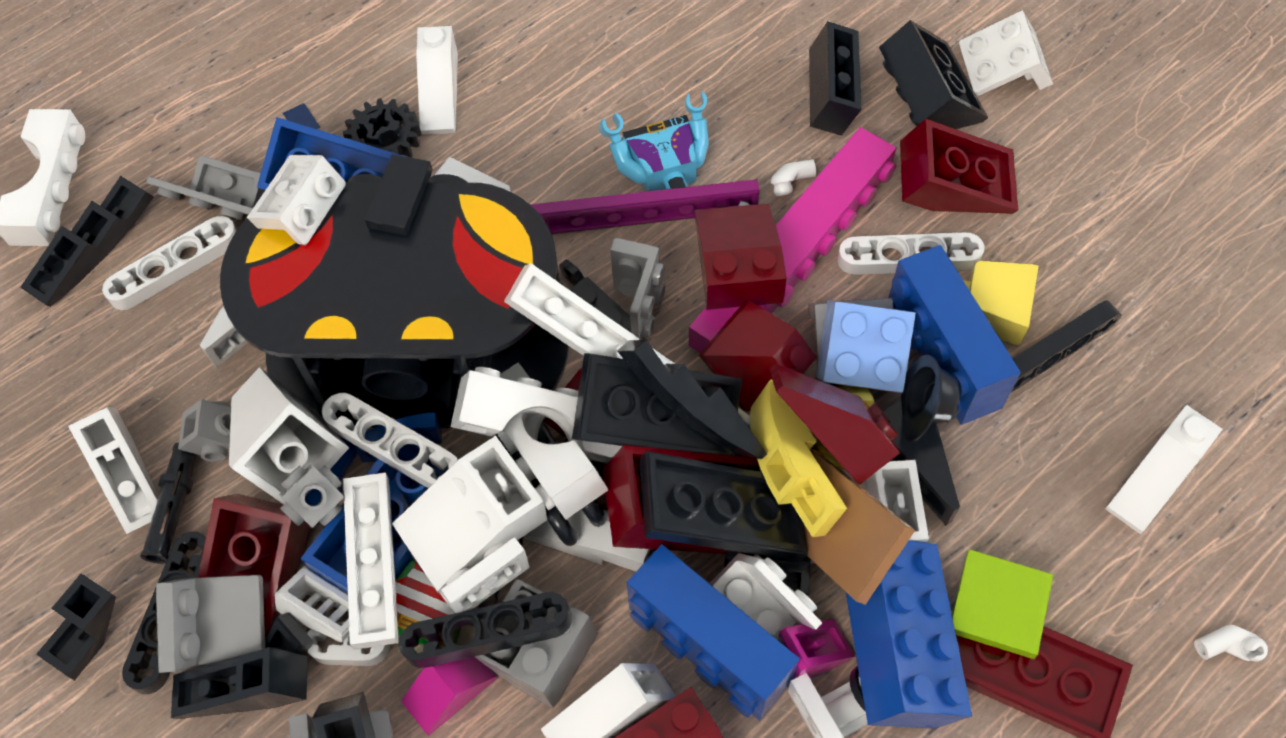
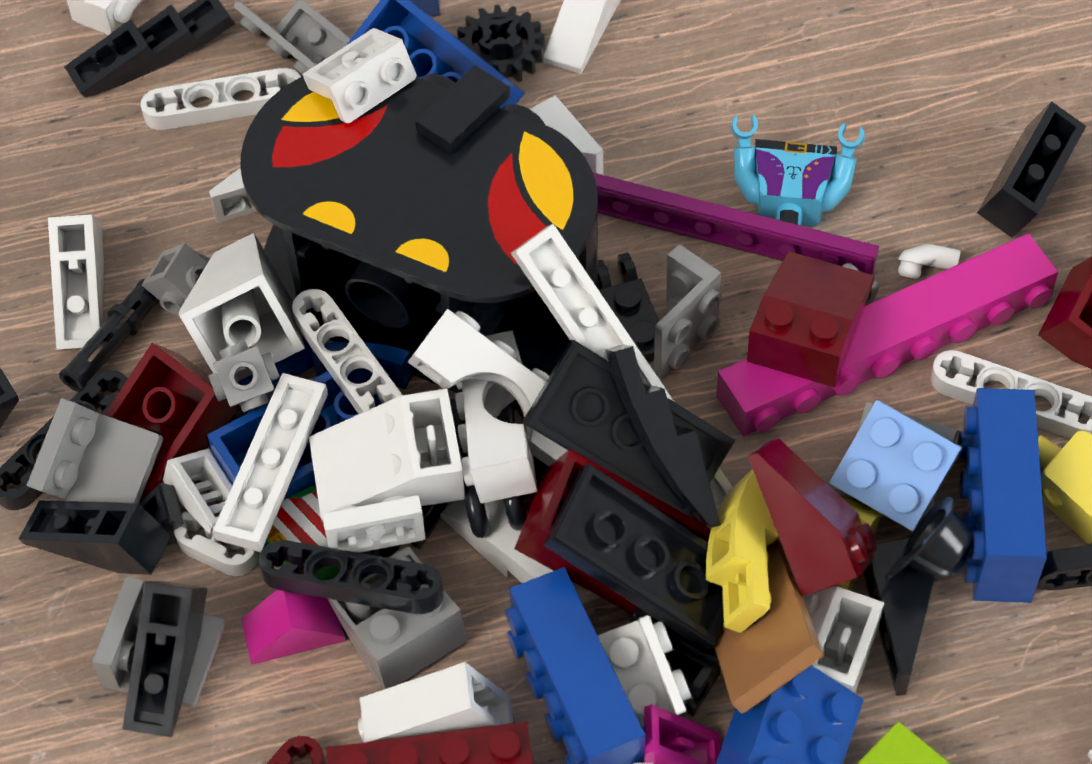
camera: 25 degrees right, 5 degrees down
(752, 345) = (771, 410): dark red slope -> none

